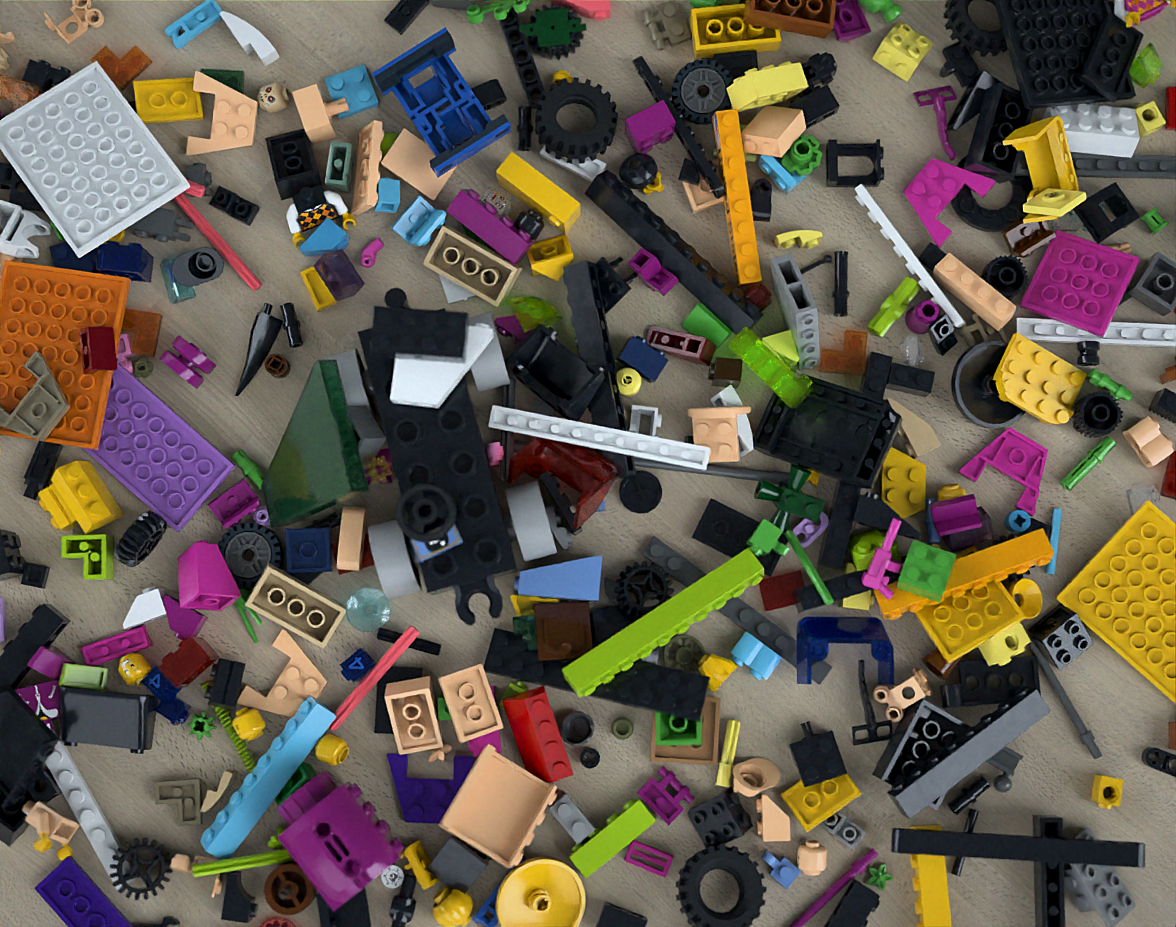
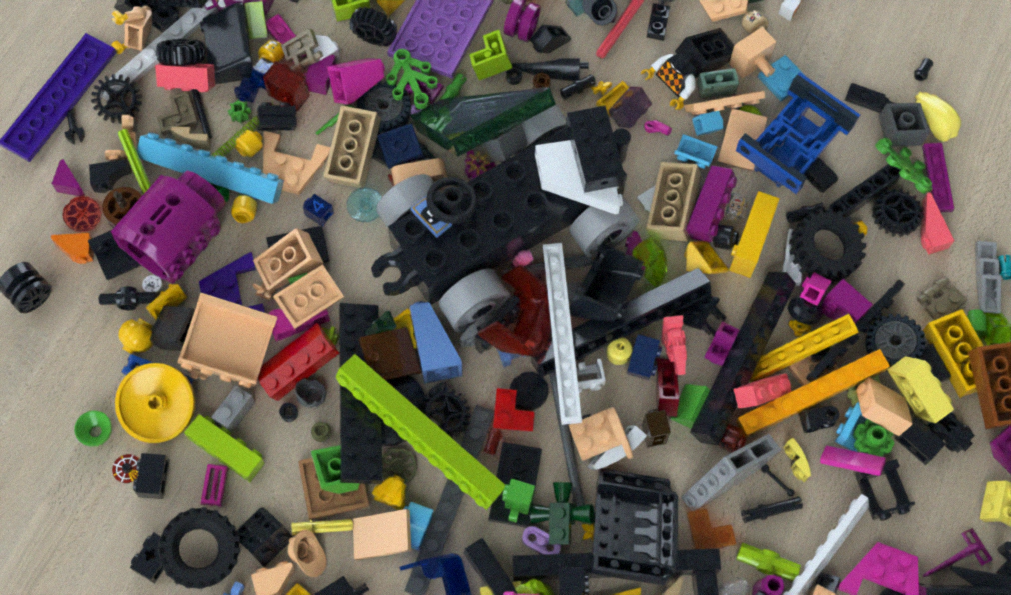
camera: 70 degrees right, 15 degrees down
(102, 777) = (180, 51): none -> black gear
(136, 779) = (186, 77): none -> coral brick
(140, 632) = (300, 45): none -> dark tan plate
(178, 771) = (201, 113): none -> black bar
(219, 337) = (549, 38): none -> black slope
(223, 513) = (411, 77): none -> bright green plant
(228, 411) = (493, 58): none -> lime brick
(246, 395) = (514, 81): none -> black bush
(301, 298) = (601, 87): none -> yellow plant
(325, 239) = (656, 89): dark azure slope -> none
(374, 676) = (311, 223): coral axle -> none
(417, 644) = (348, 243): black axle -> none
(557, 36) = (896, 214): dark green piece -> none
(623, 152) = (815, 288): none -> dark pink brick
(641, 321) = (674, 342): none -> coral piece
(660, 800) = (267, 478): magenta plate -> none
(666, 522) = (507, 417): none -> red brick
(684, 185) = (804, 347): none -> yellow plate
(686, 547) = (492, 441): none -> clear red pin
(721, 248) = (762, 390): none -> coral brick
(758, 692) = (382, 534): none -> light nougat tile
(771, 367) = (672, 459): clear neon green brick -> none
(777, 590) = (479, 527): clear red plate -> none
(784, 346) = (696, 469): light yellow slope -> none
(811, 571) = (505, 544): bright green bar -> none
(817, 184) = (853, 460): none -> dark pink tile

